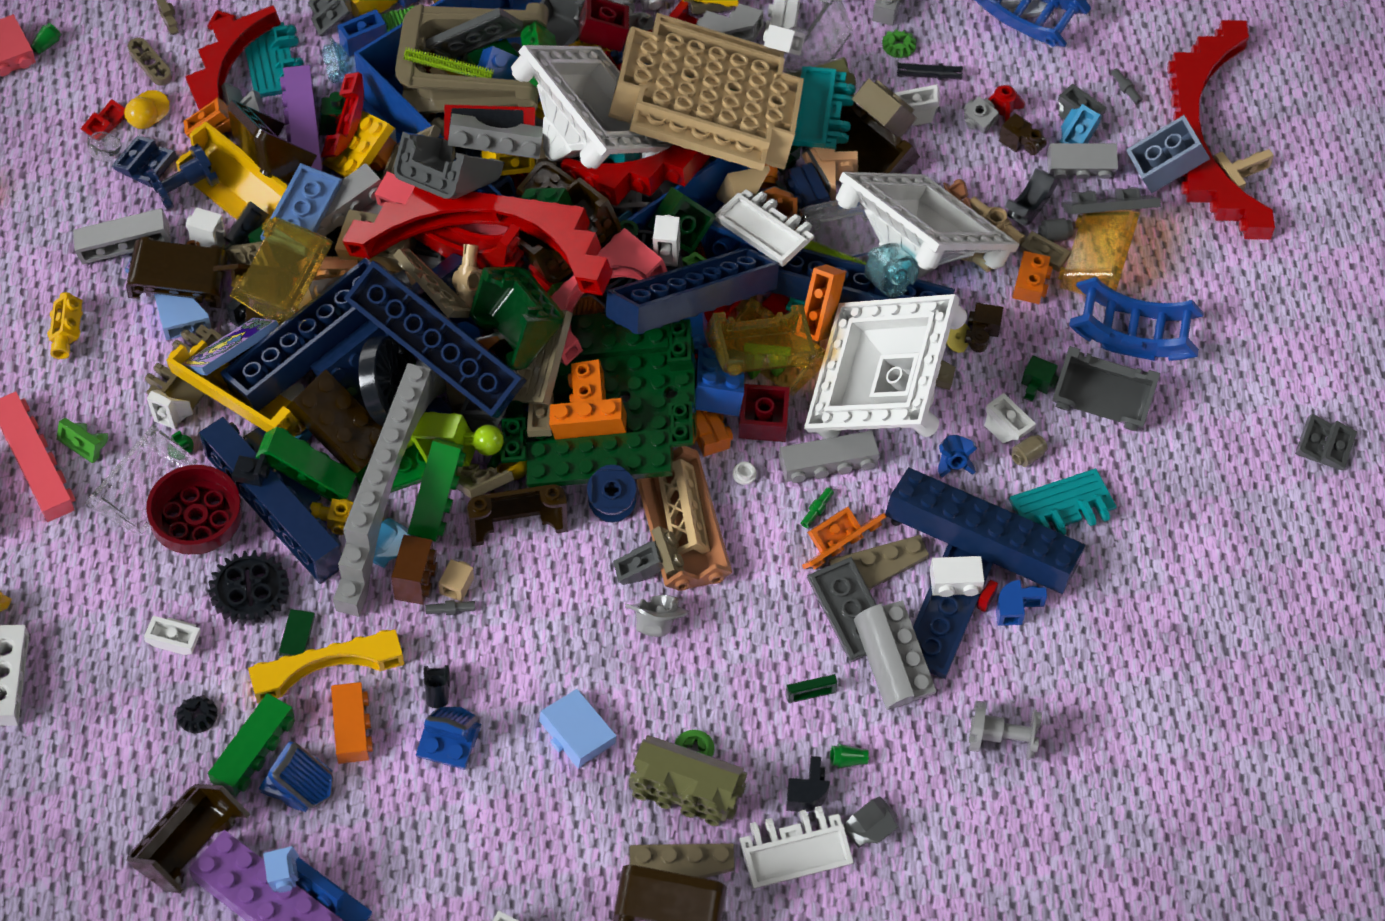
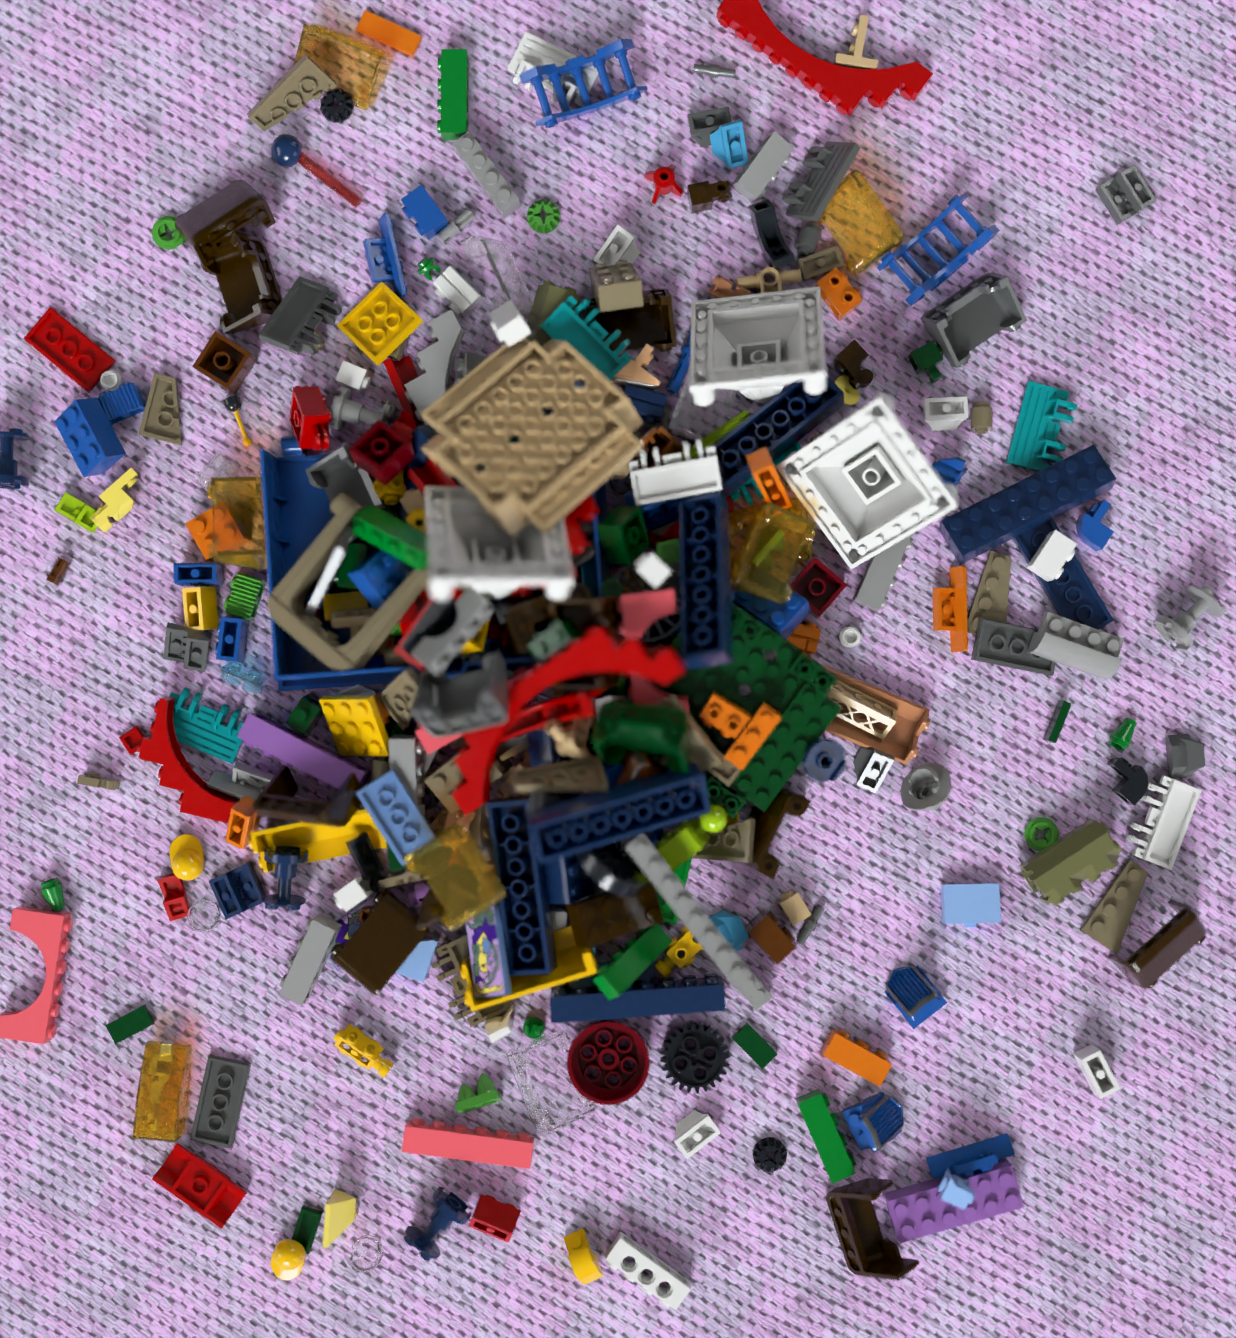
camera: 40 degrees left, 30 degrees up
(149, 53) = (121, 819): dark tan beam -> none
(251, 470) = (616, 1009): black bracket -> none
(353, 91) = (329, 718): red slope -> none
(374, 651) = (813, 1002): yellow arch -> none
(436, 488) = (722, 880): green brick -> none
(437, 686) = (867, 976): black piece -> none
(447, 65) = (358, 615): lime axle -> none
(665, 543) = (885, 745): dark tan plate -> none
(817, 507) = (915, 606): green bar -> none
(891, 269) = (781, 407): clear light blue brick -> none
(931, 71) = (596, 207): black pin -> none
(980, 114) = (671, 211): light grey brick -> none
(987, 595) = (1074, 536): red tile -> none
(1167, 154) = (814, 99): sand blue brick -> none

